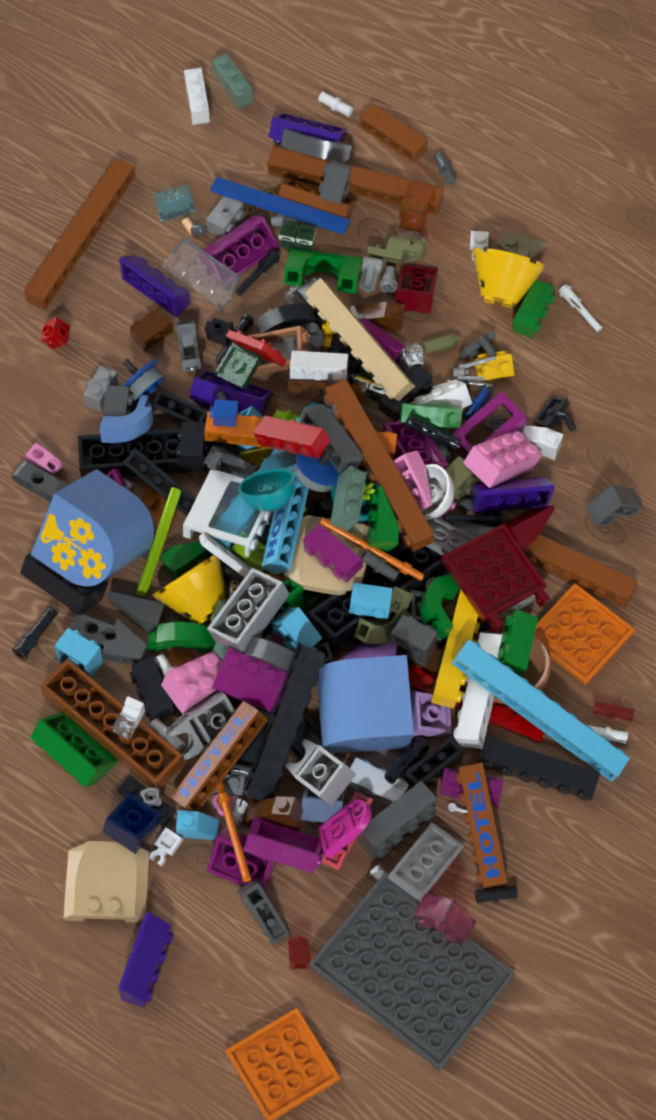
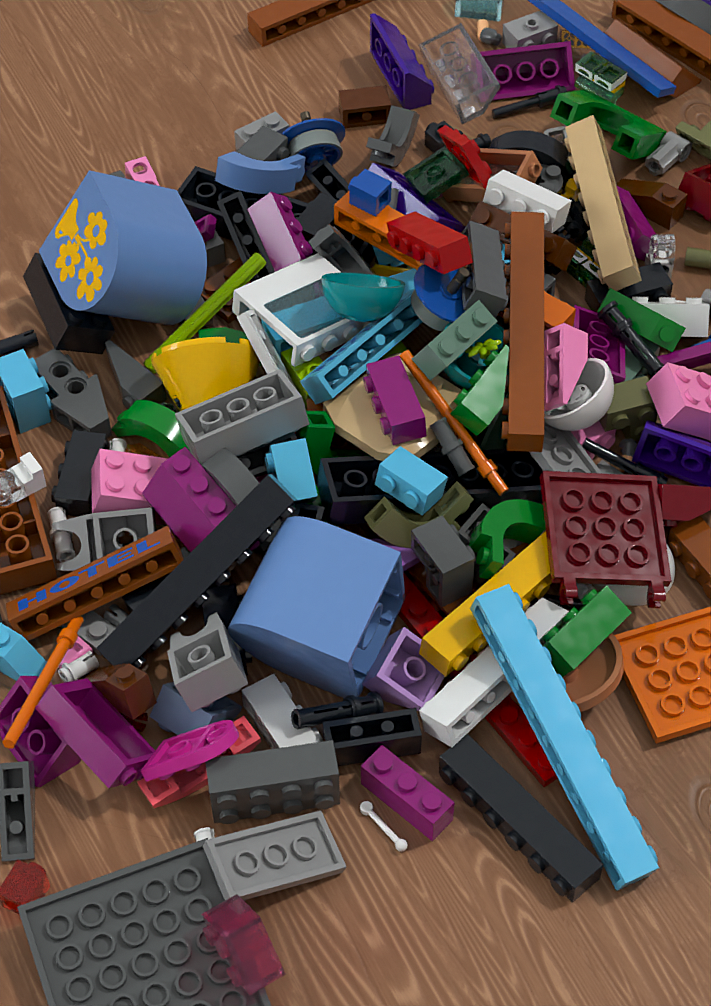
camera: 30 degrees right, 10 degrees down
(55, 333) = (252, 66): red brick -> none
(179, 466) = (279, 231): none -> brick
(336, 182) = (679, 37): dark grey brick -> none
(389, 281) = (681, 167): light grey cone -> none
(482, 826) = (382, 849): dark orange brick -> none
(496, 894) = (348, 957): black pin -> none
(610, 734) = (652, 824): white pin -> none
(613, 711) = (676, 795): clear red pin -> none

